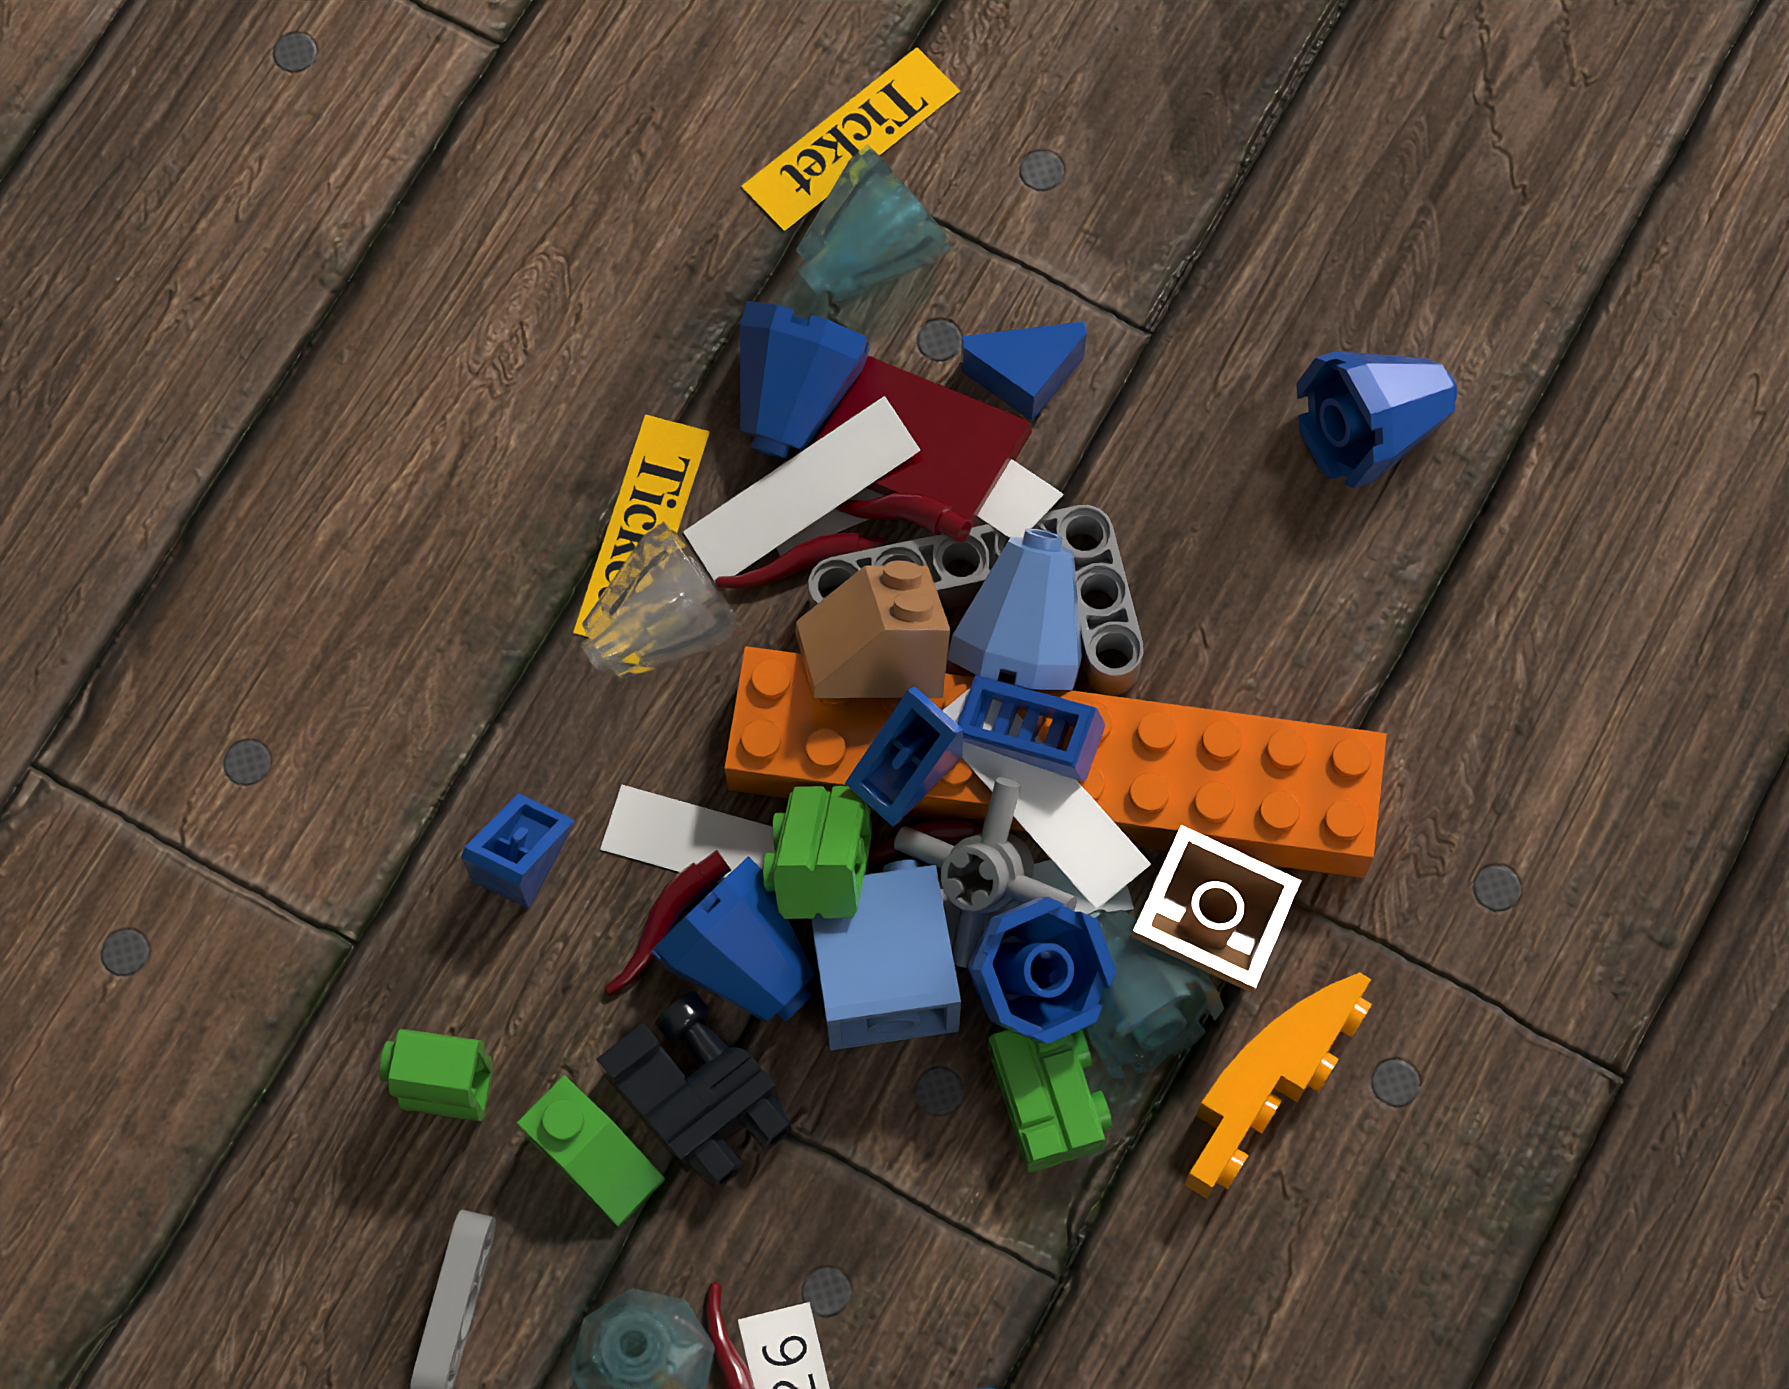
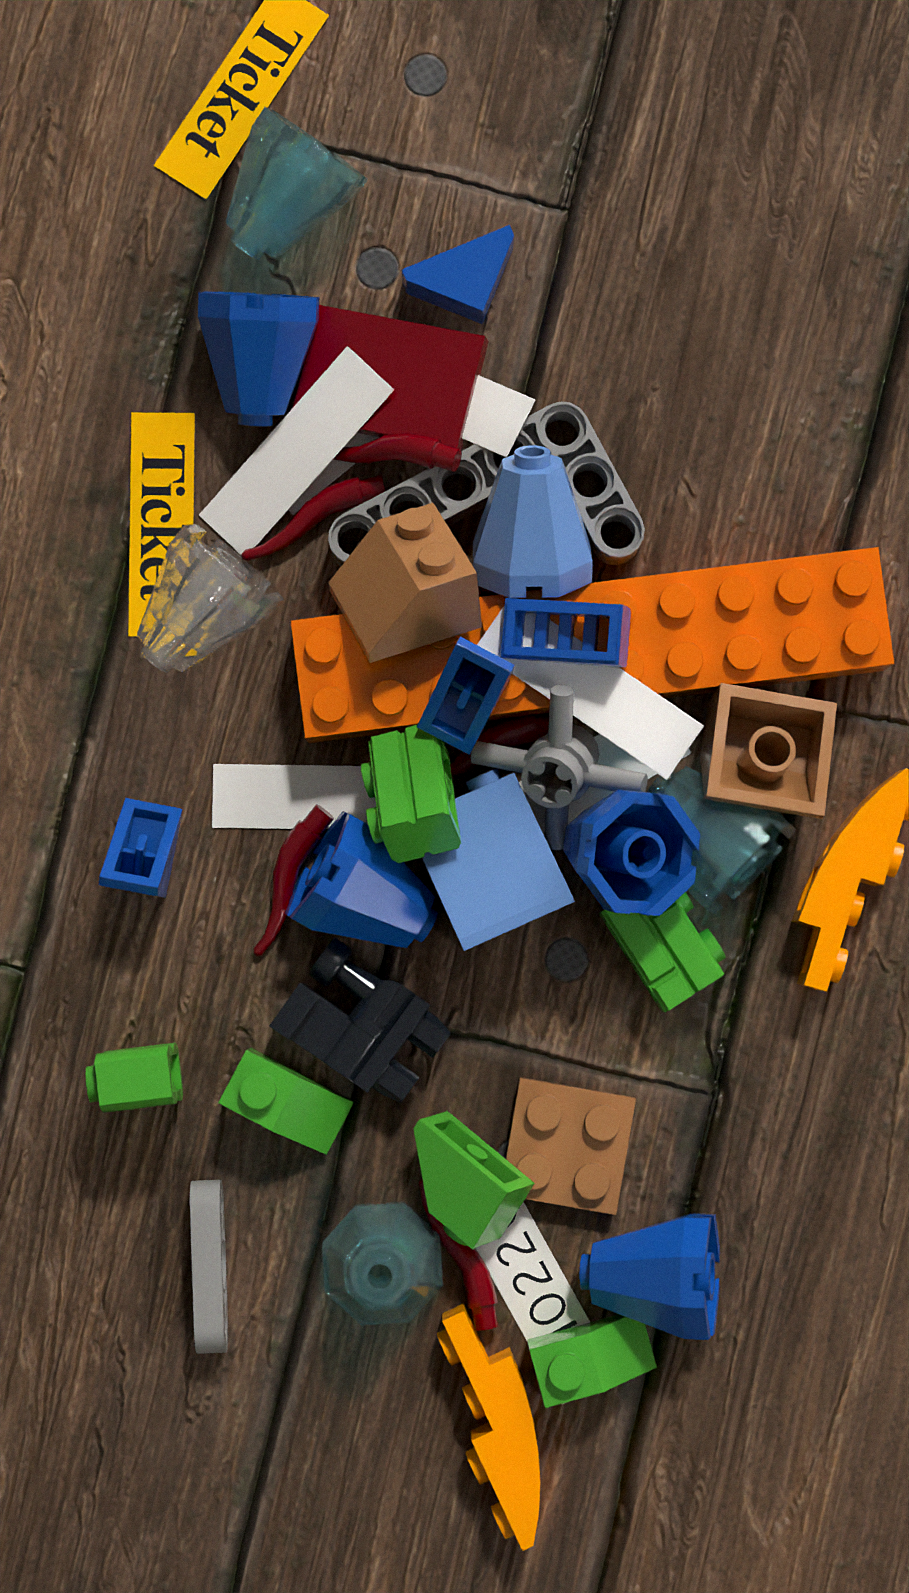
camera: 20 degrees left, 15 degrees up
(762, 1292) = (467, 1181): none -> bright green slope
(883, 1289) = (571, 1143): none -> medium nougat plate
(1371, 410) = (789, 239): blue cone -> none

